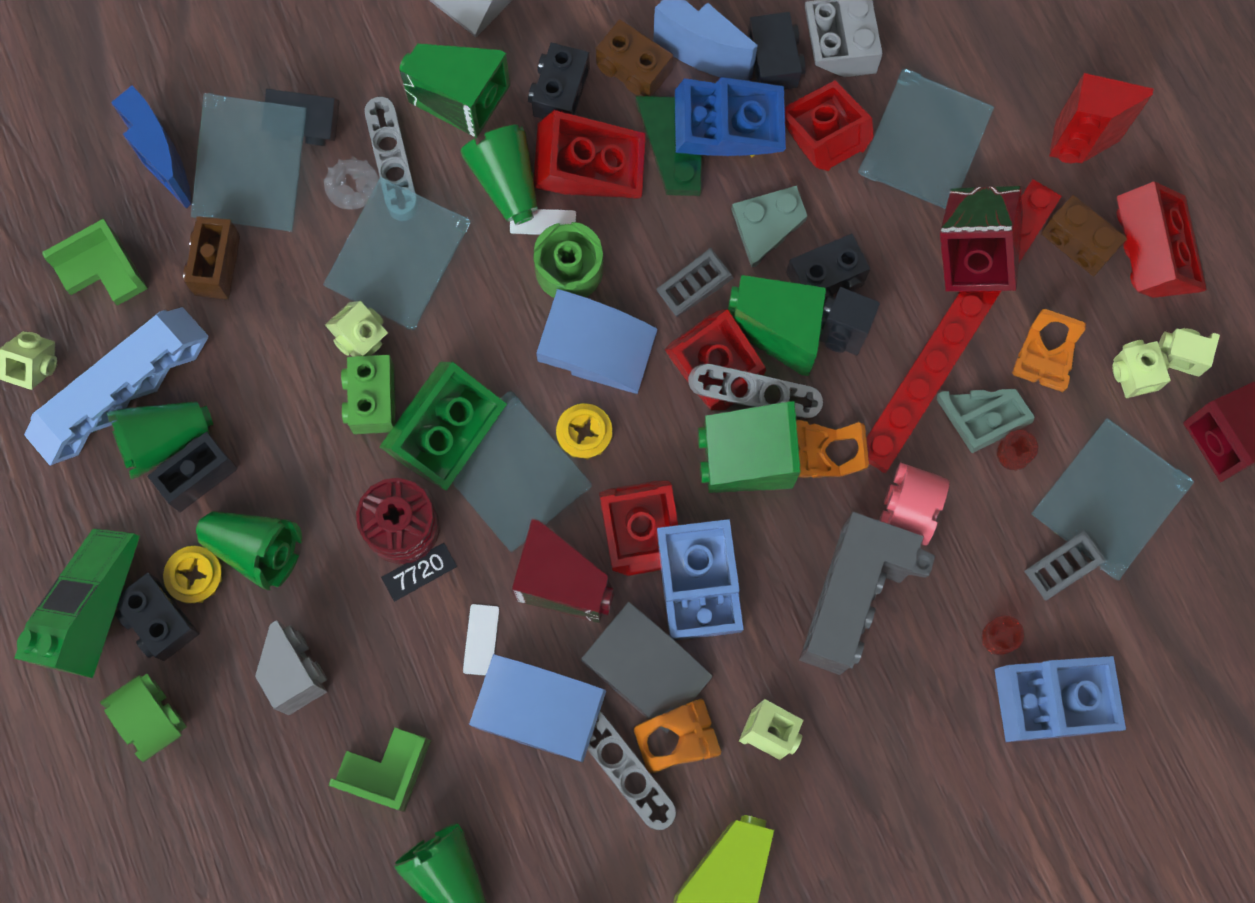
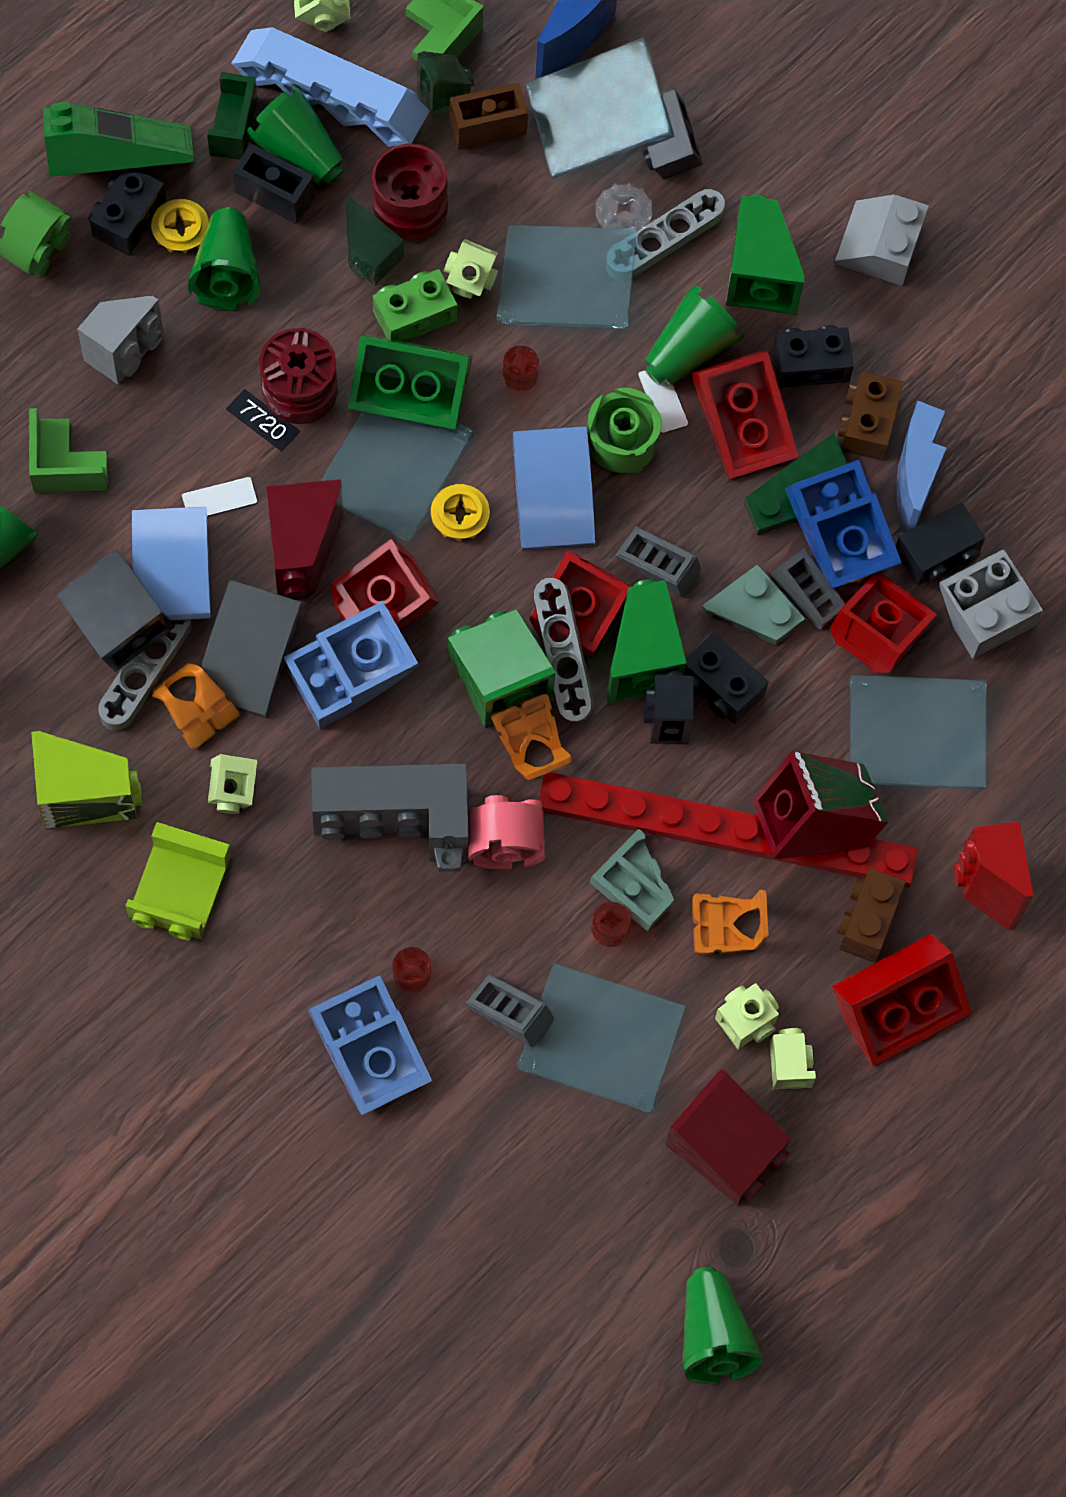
camera: 65 degrees right, 5 degrees down
(104, 484) = (233, 116): none -> dark green panel
(159, 285) = (440, 79): none -> clear green slope
(245, 341) = (410, 191): none -> dark red wheel
(288, 410) = (371, 244): none -> clear green slope
(467, 318) = (526, 362): none -> clear red wheel
(565, 778) = (115, 610): none -> black panel
(750, 184) = (800, 598): none -> dark grey slope
(850, 817) = (179, 882): none -> lime panel

